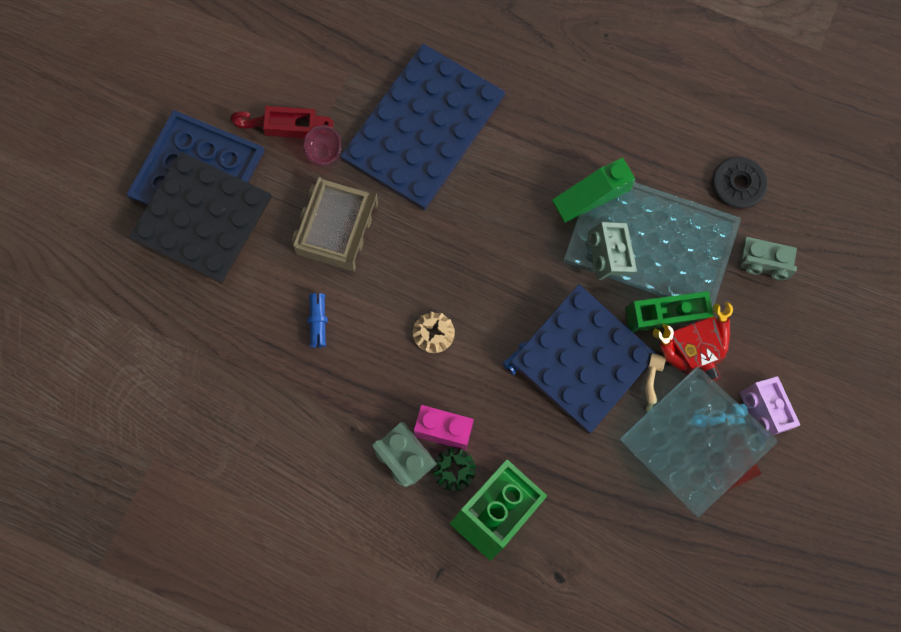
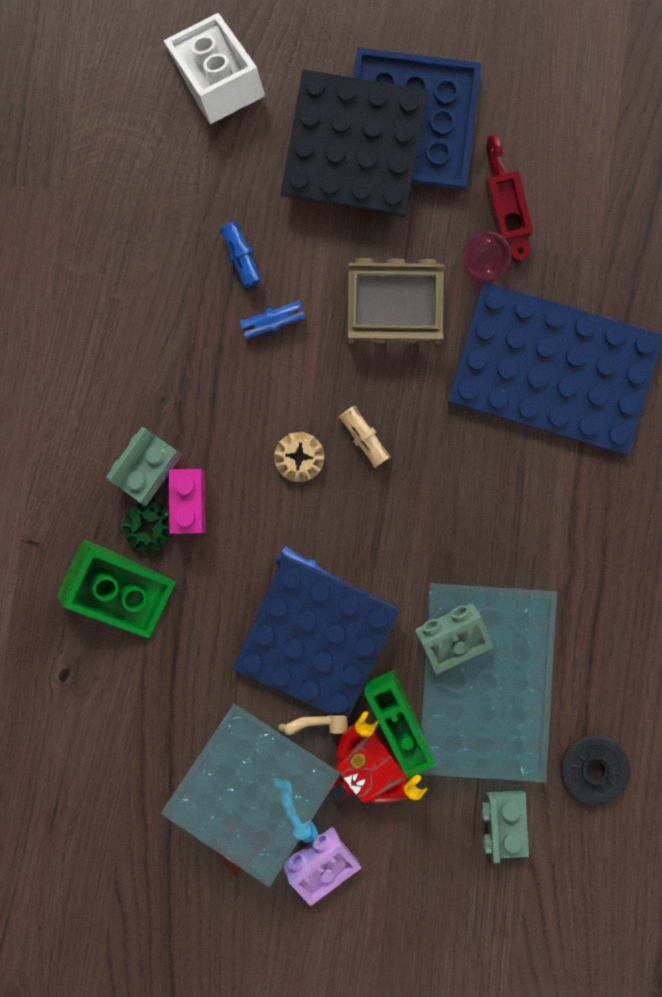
camera: 75 degrees right, 15 degrees up
(100, 306) = (215, 68): none -> white slope
(256, 330) = (240, 254): none -> blue pin
(433, 277) = (364, 436): none -> tan pin
(595, 190) = (524, 597): green slope -> none

